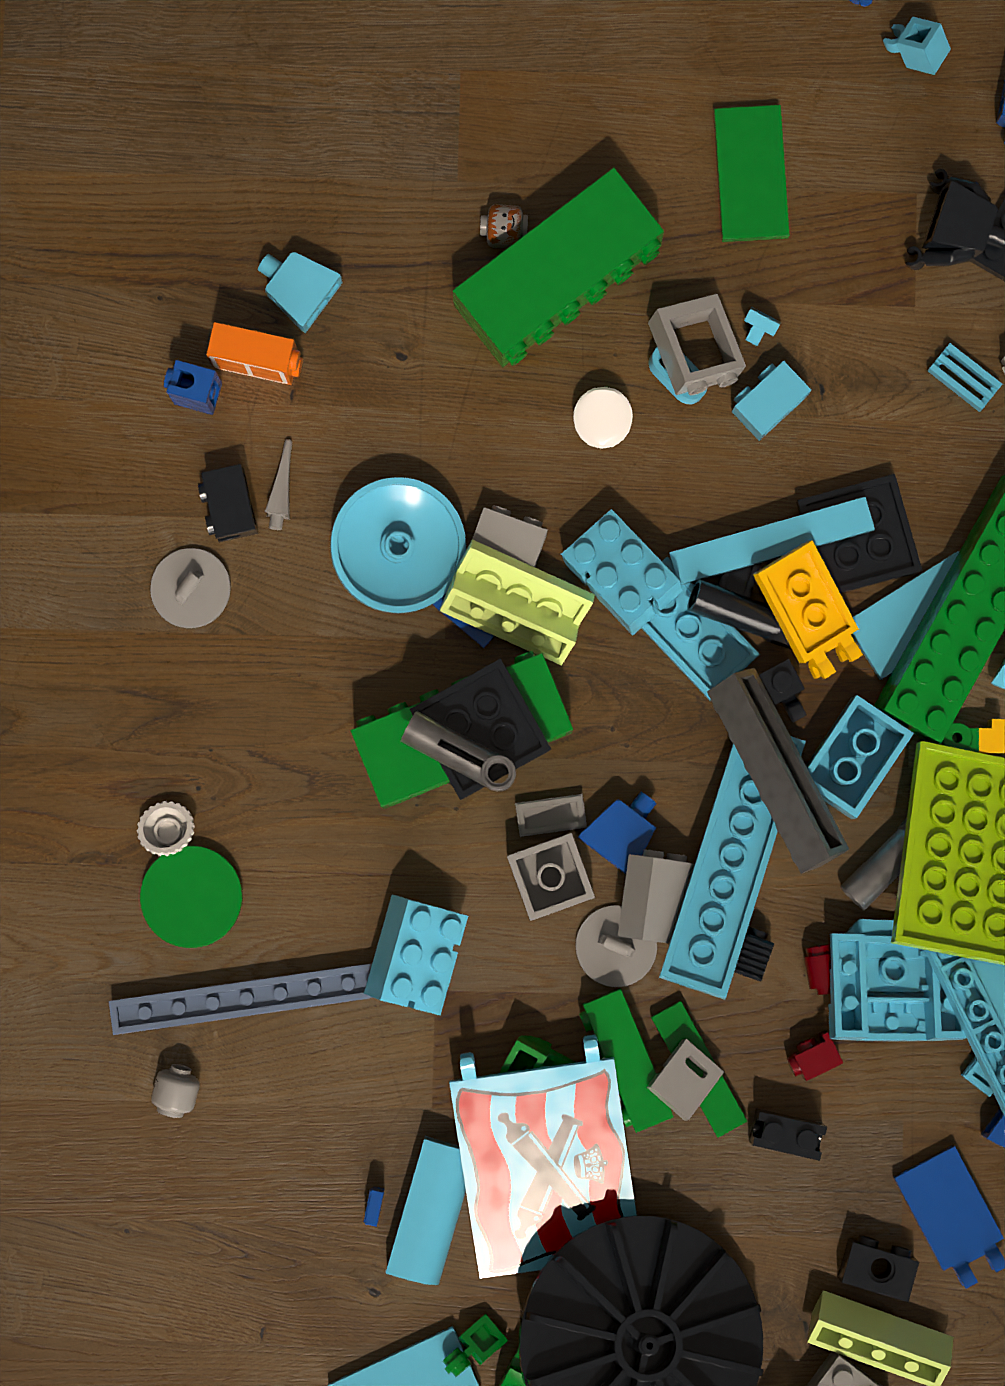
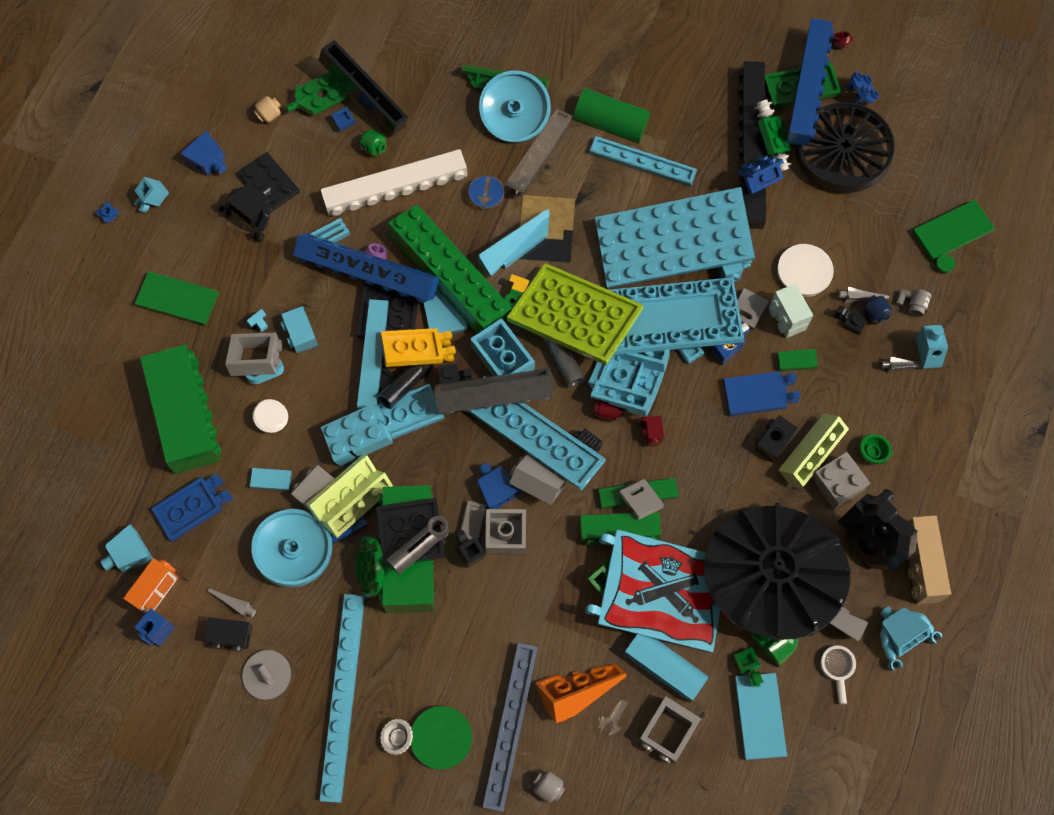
camera: 70 degrees left, 15 degrees down
(199, 720) = (342, 699): none -> medium azure plate
(287, 1255) = (679, 712): none -> light grey window
(317, 1155) = (613, 718): none -> clear bar
(332, 1078) = (571, 694): none -> orange wedge
(374, 1206) = (653, 695): blue tile -> none
(408, 355) = (191, 506): none -> blue tile
(408, 683) = (370, 566): none -> green tile
(415, 955) = (521, 619): medium azure piece -> none
(497, 831) = (470, 550): none -> black brick
(500, 462) = (271, 479): none -> medium azure tile
(503, 225) = (145, 430): light grey head -> none
(612, 958) = (559, 517): light grey shield -> none
(787, 1134) = (688, 458): black brick -> none
(921, 467) = (366, 266): none -> blue brick
(960, 471) = (376, 250): none -> medium lavender hat

